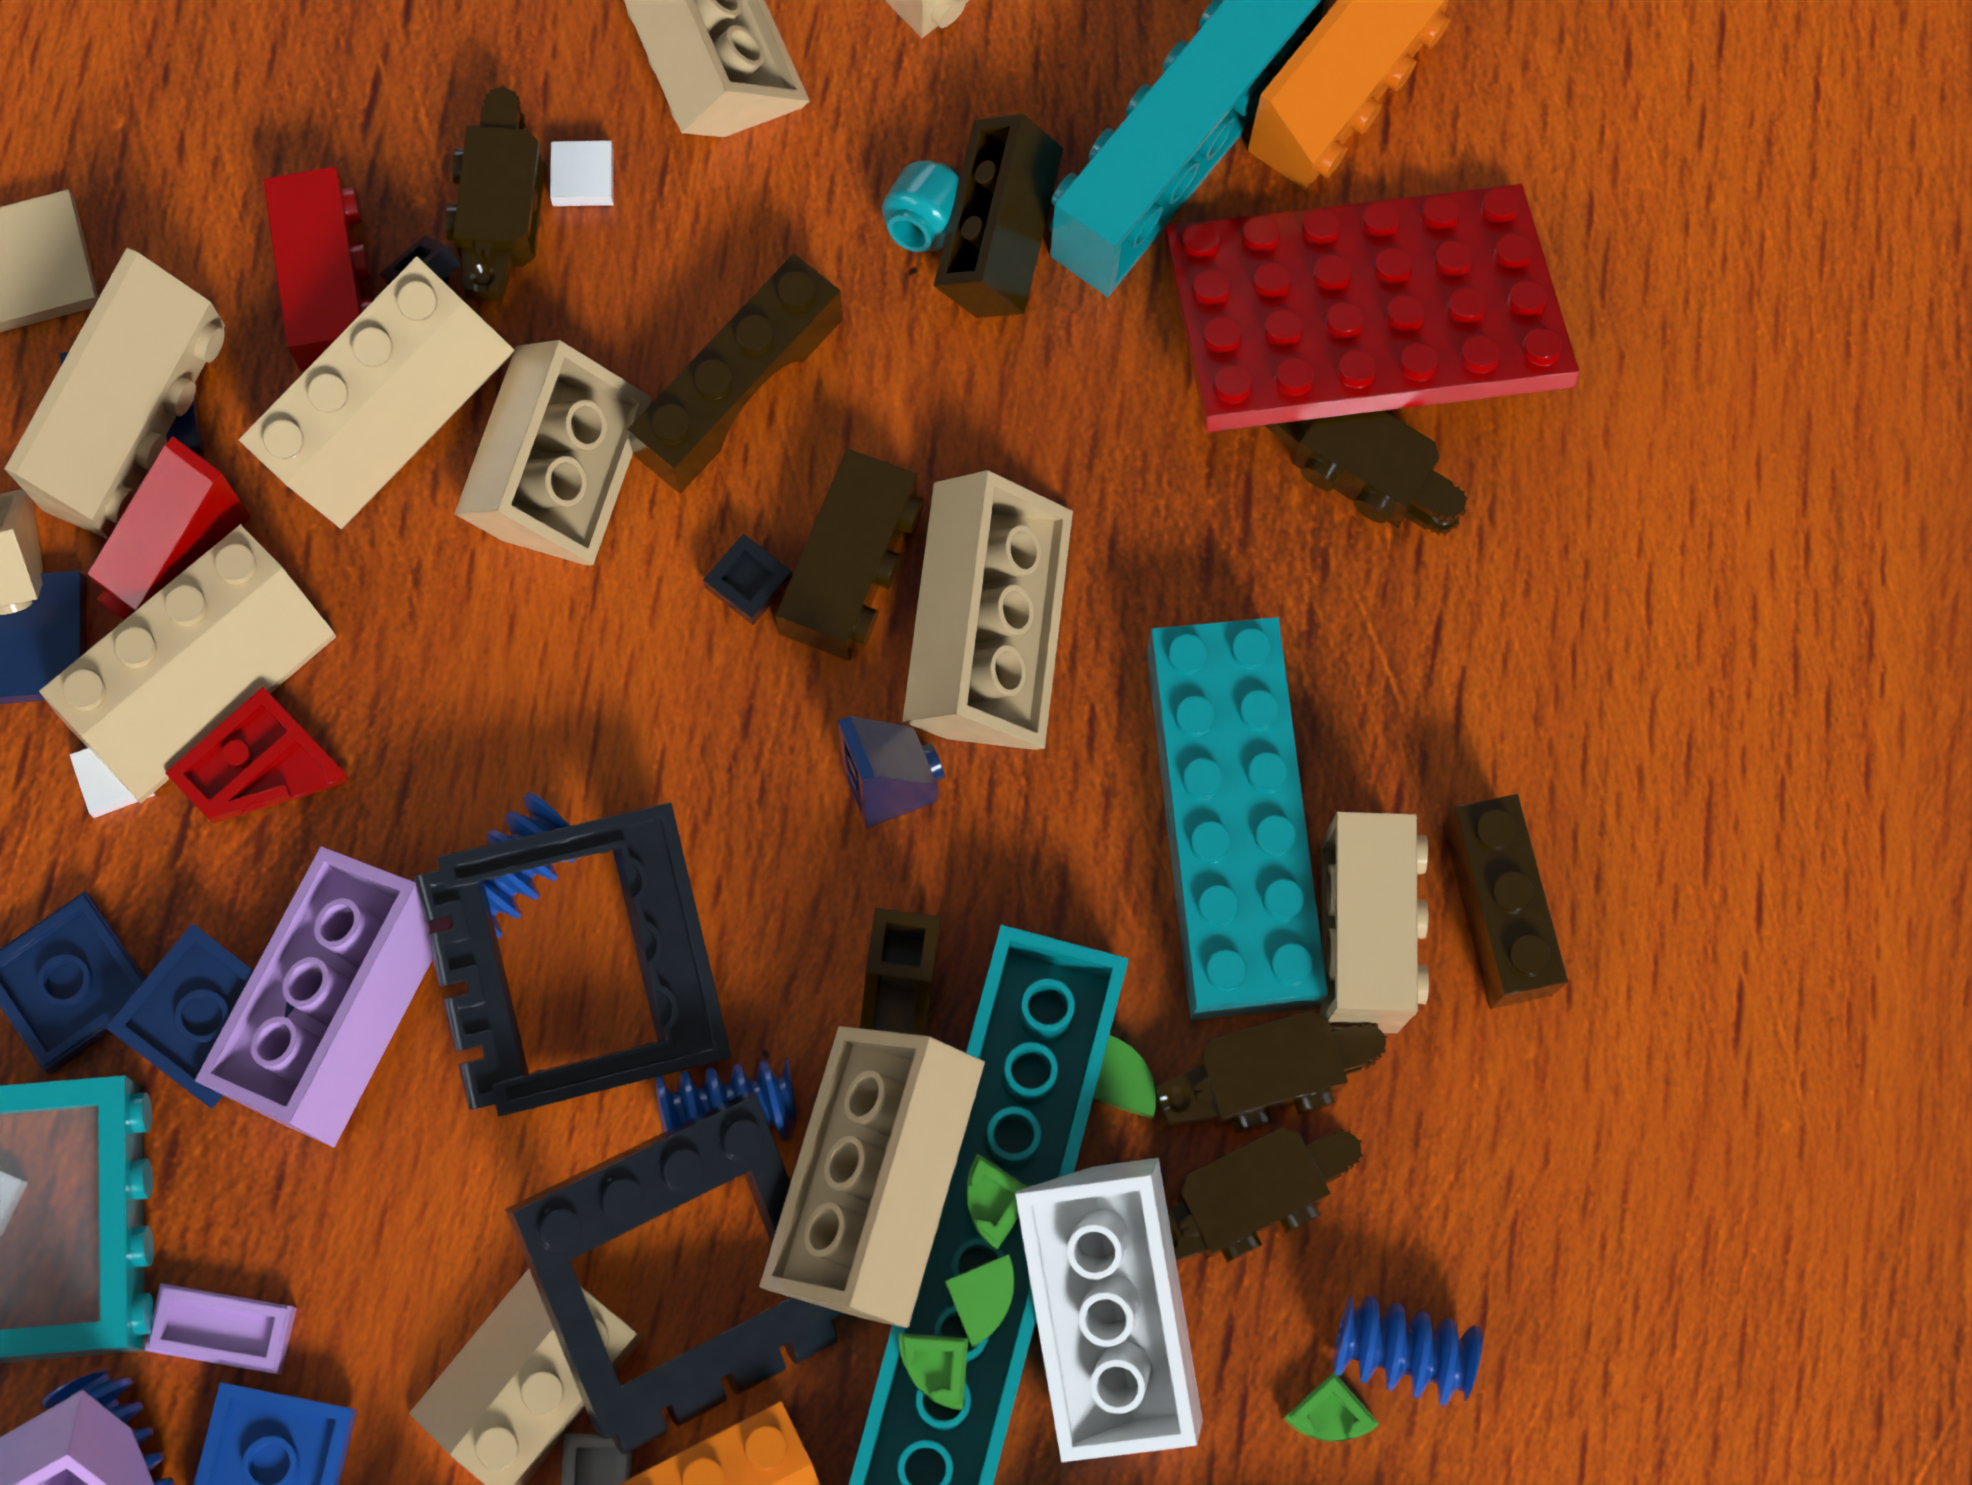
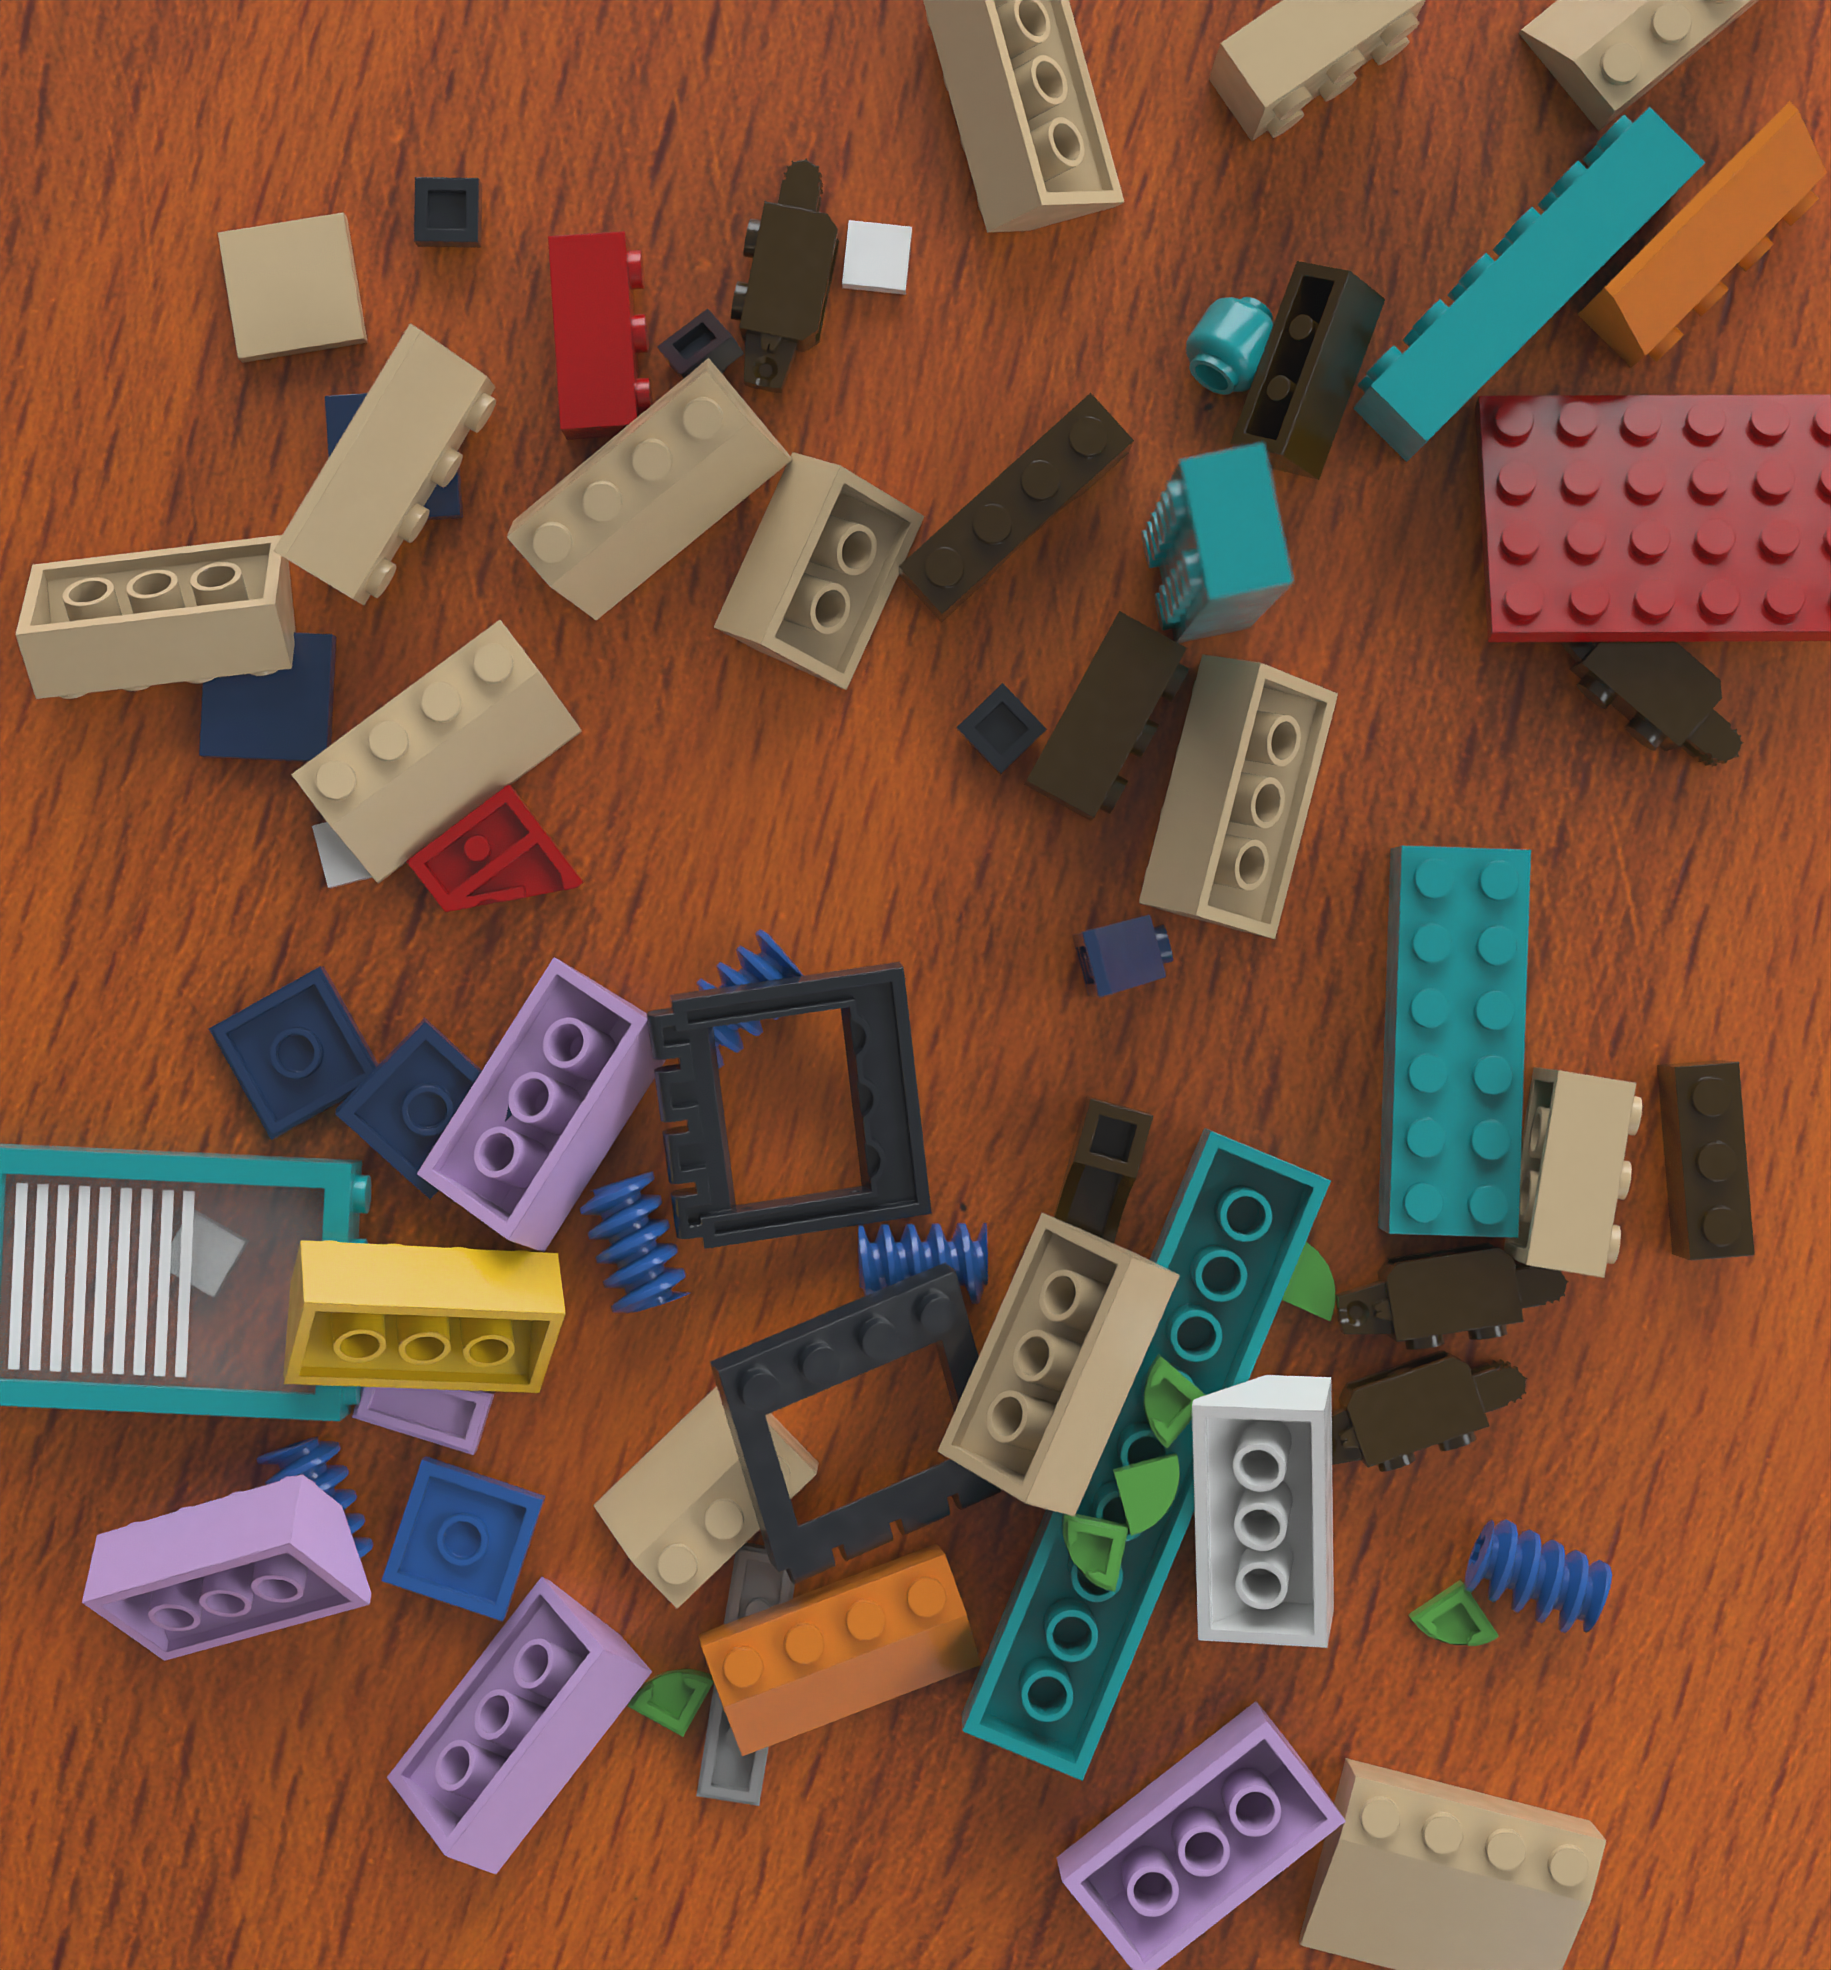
camera: 15 degrees right, 15 degrees up
(165, 529) = (421, 618): slope -> none
(169, 177) = (448, 212): none -> black plate
(206, 1225) = (422, 1317): none -> yellow slope
(424, 1128) = (634, 1244): none -> blue piece
(921, 339) = (1217, 544): none -> teal brick

